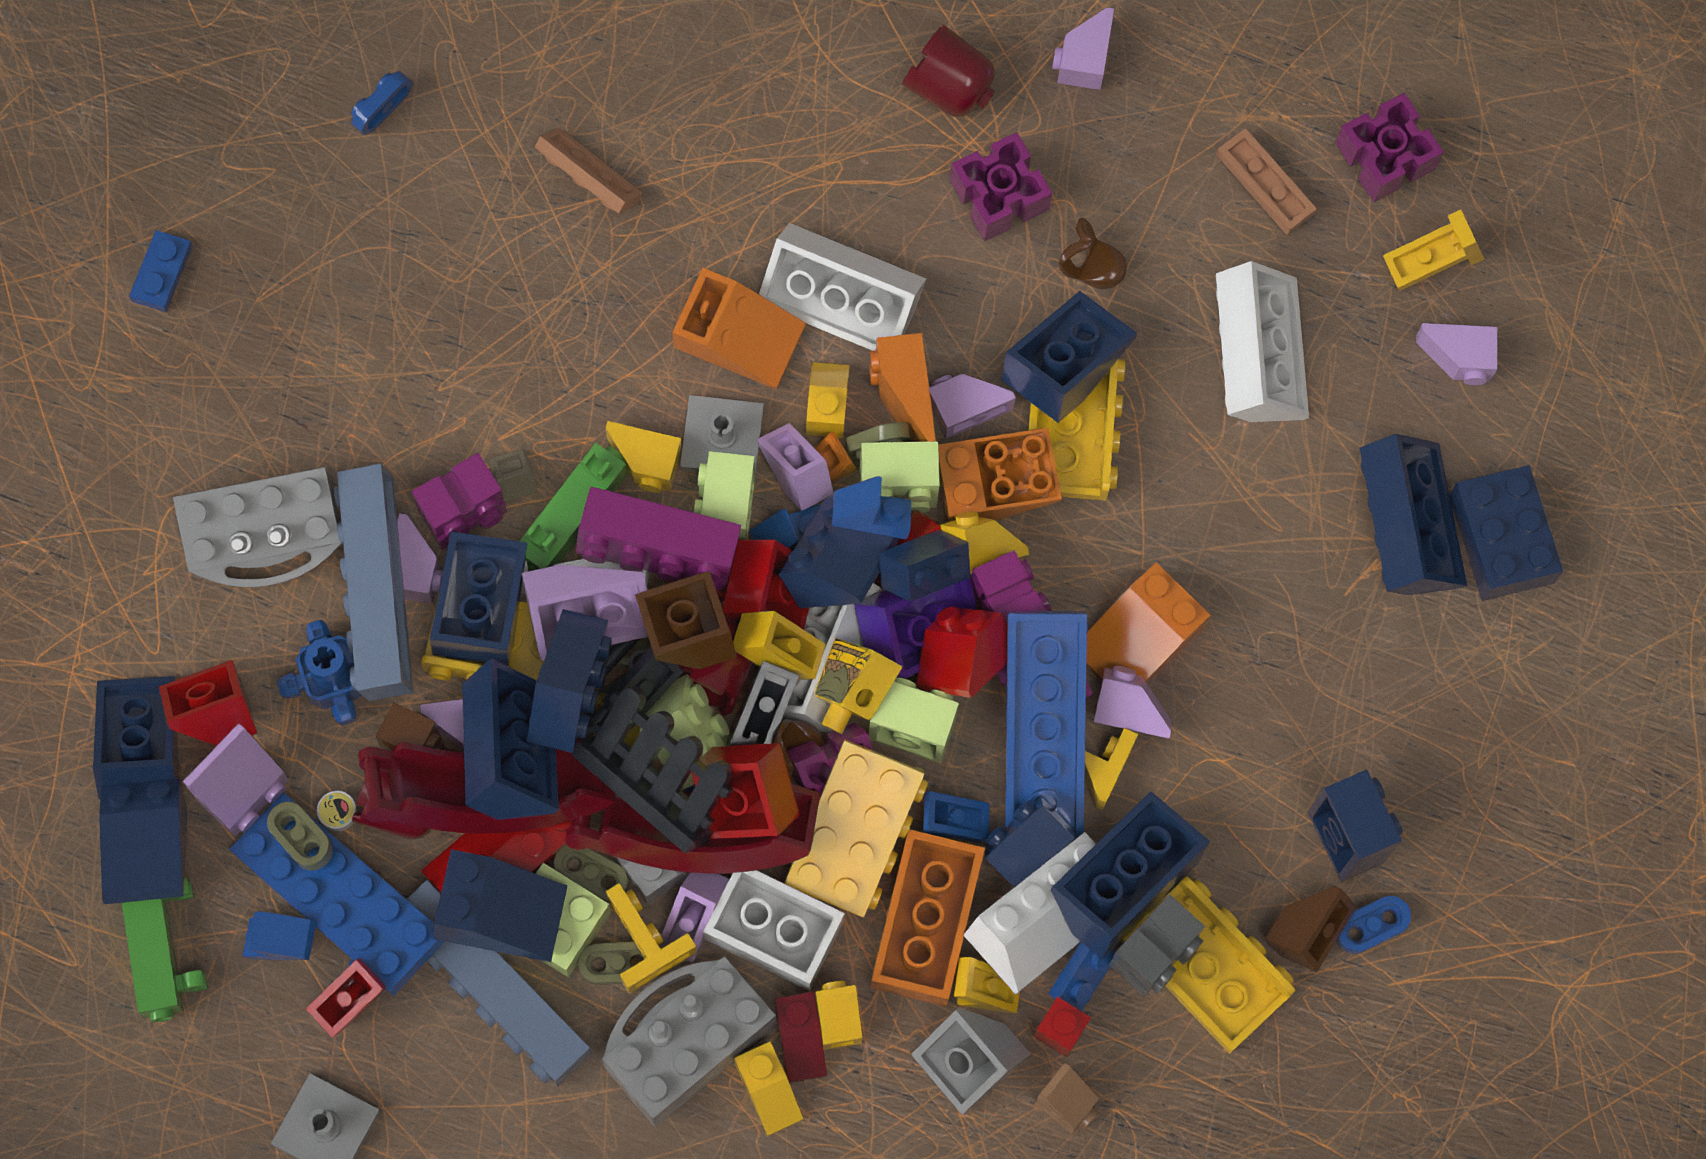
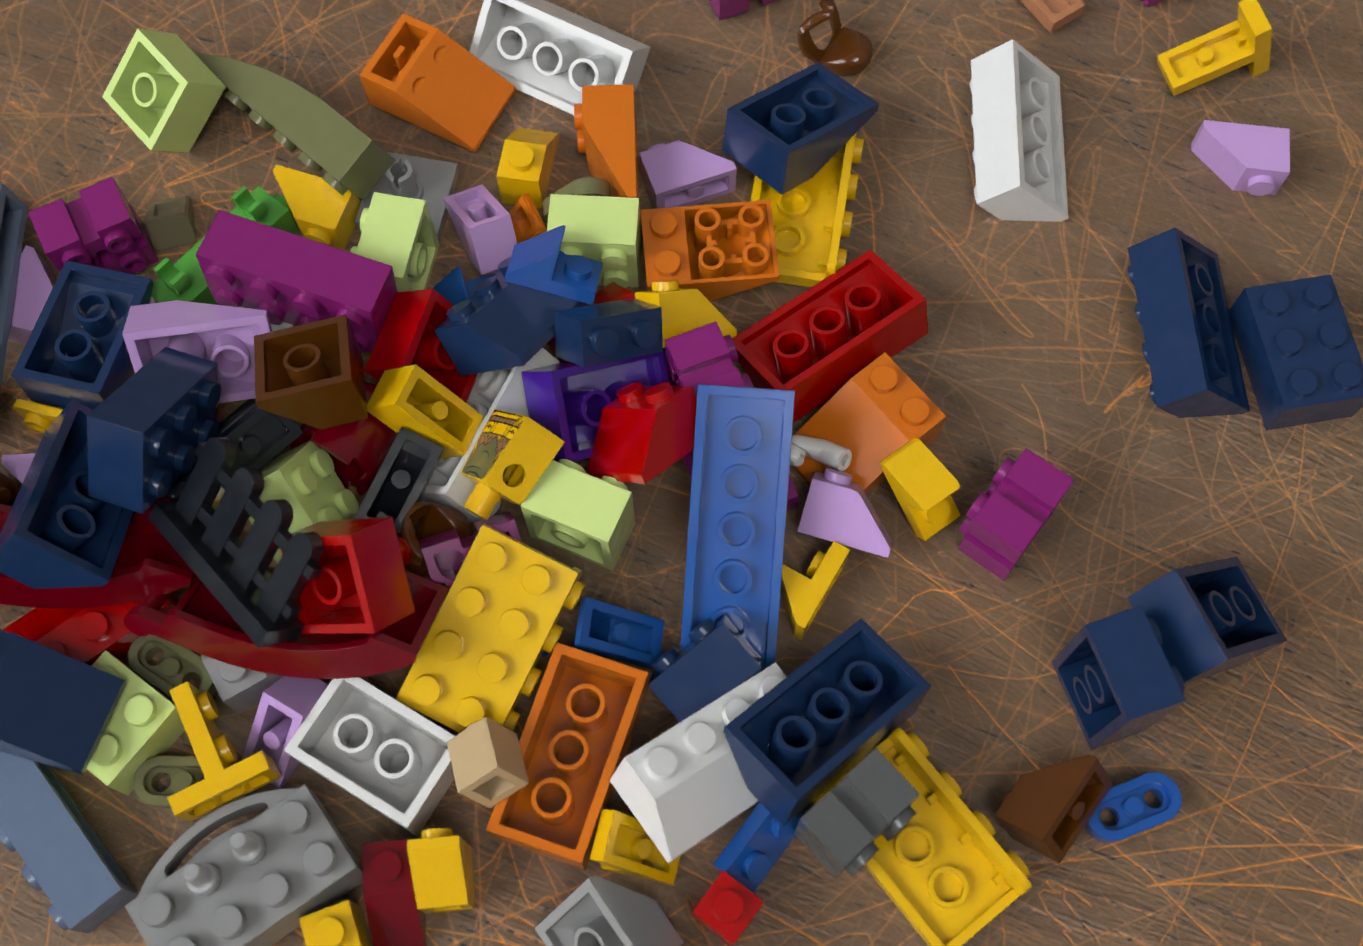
camera: 10 degrees right, 5 degrees down
(495, 357) = (163, 91): none -> yellowish green brick
(626, 381) = (304, 122): none -> olive slope
(868, 928) = (487, 762): none -> tan brick
(1109, 545) = (833, 332): none -> red slope
(1109, 651) = (819, 450): none -> white arm
(1193, 677) = (921, 488): none -> yellow slope
(1275, 685) = (1012, 512): none -> magenta brick
(1426, 771) = (1209, 617): none -> dark blue brick

